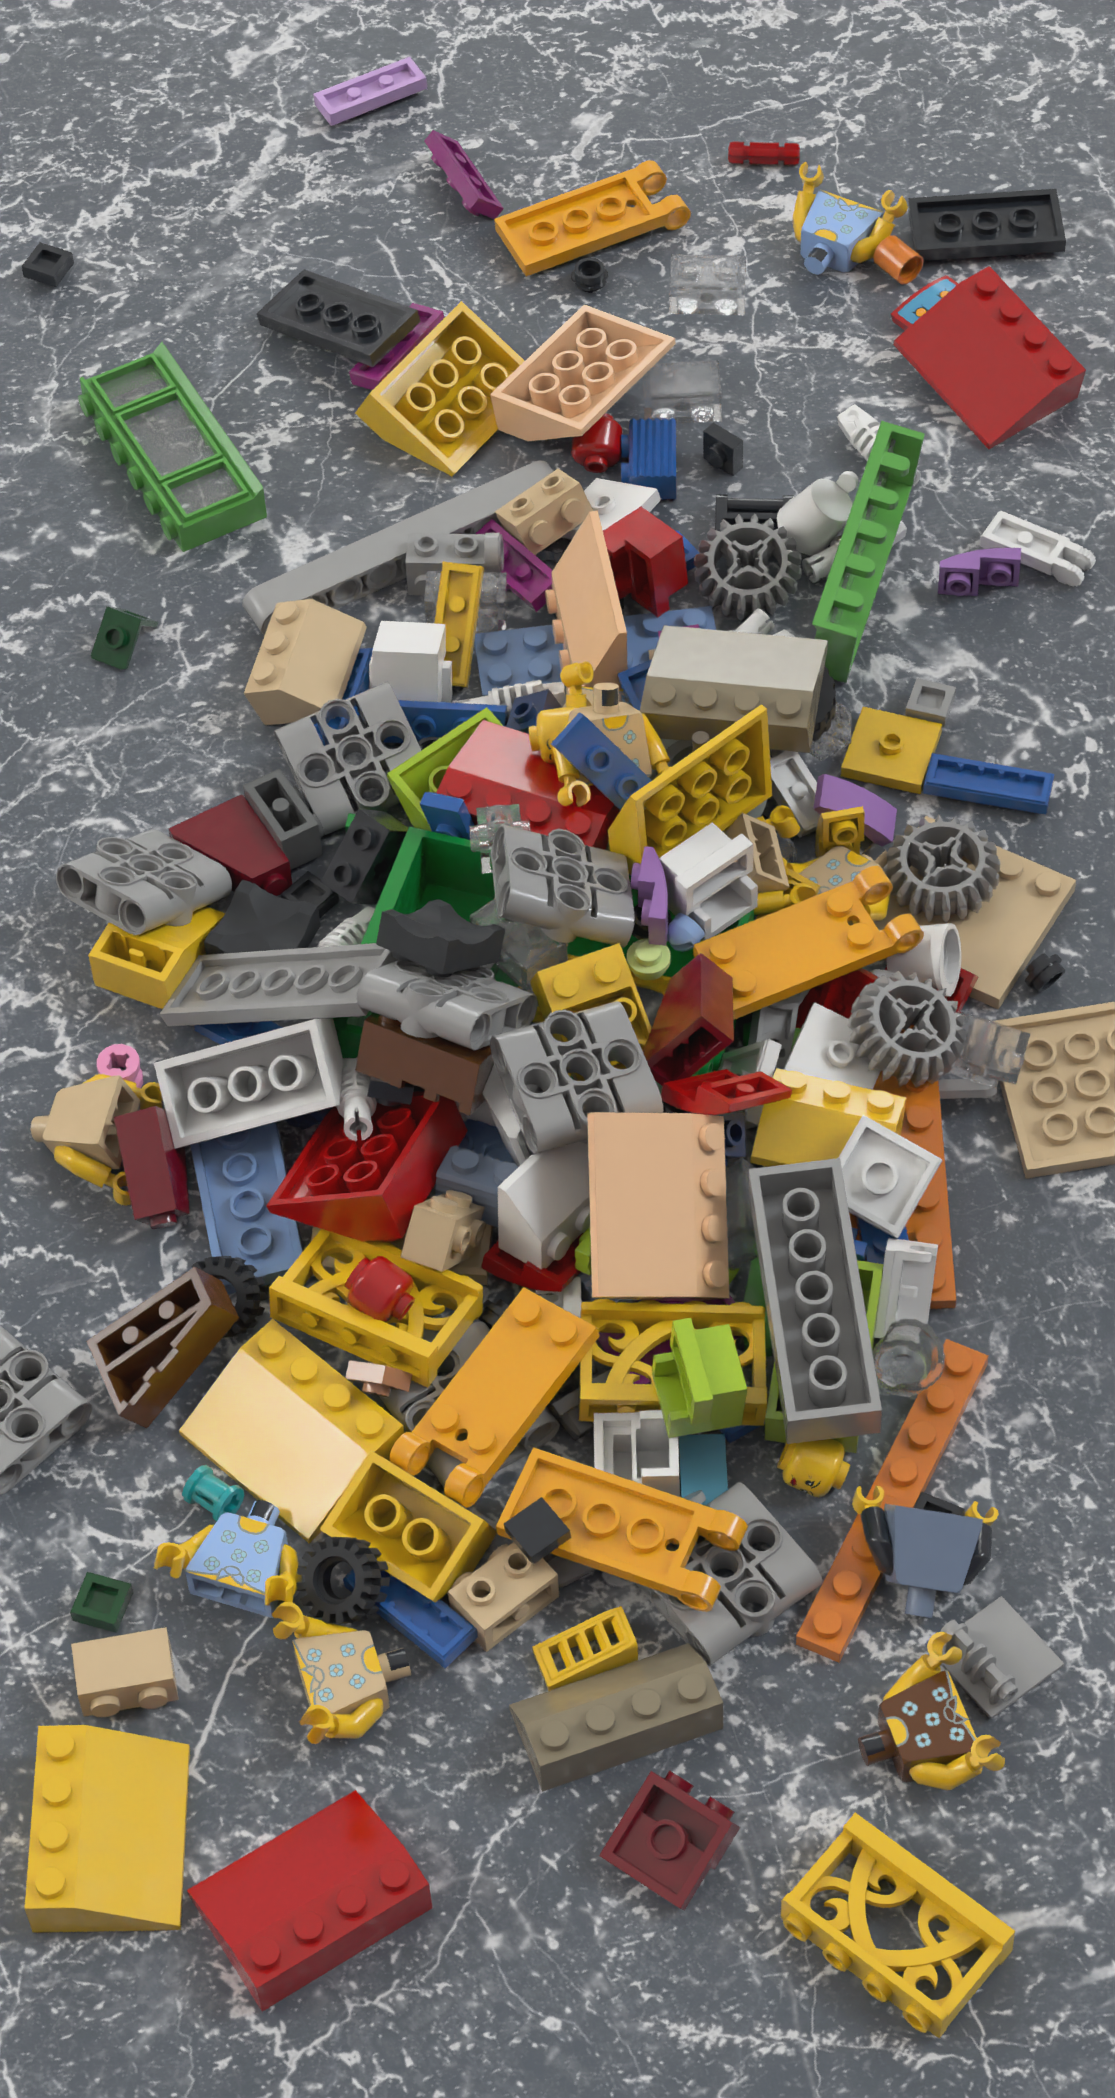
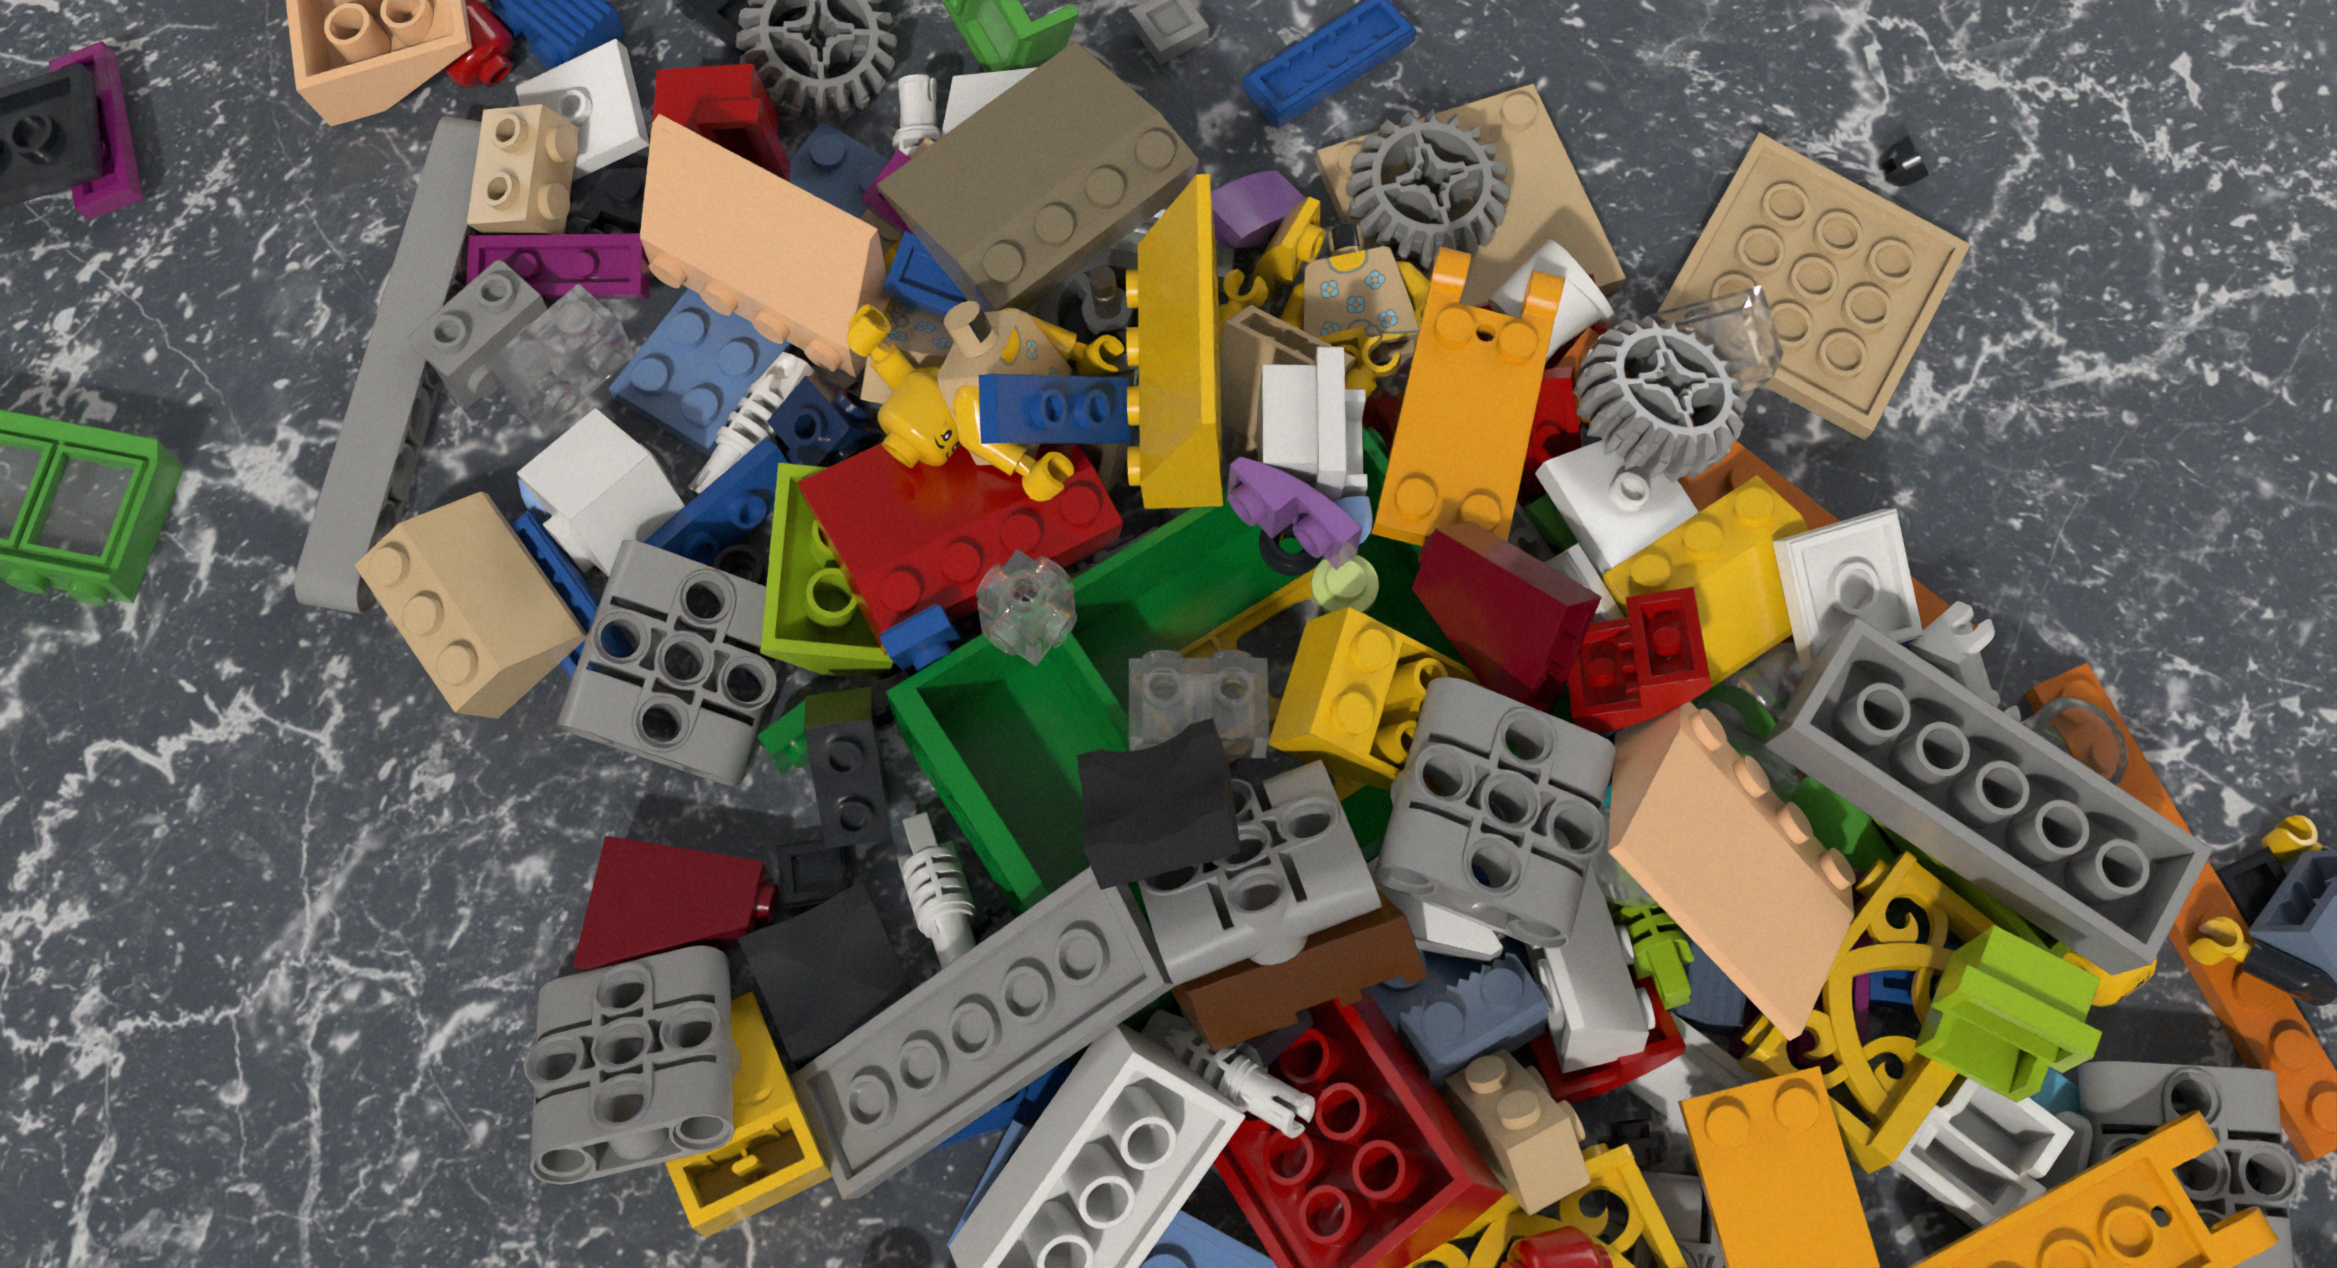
camera: 55 degrees left, 15 degrees up
(118, 636) = (193, 779): dark green bracket -> none
(286, 817) = (686, 810): dark grey brick -> none
(440, 393) = (222, 134): yellow slope -> none
(459, 609) = (582, 377): yellow tile -> none
(493, 552) = (534, 271): light grey tile -> none
(562, 886) = (1189, 601): light grey connector -> none
(891, 750) = (1203, 103): yellow plate -> none
(1044, 971) = (1630, 208): black plate -> none

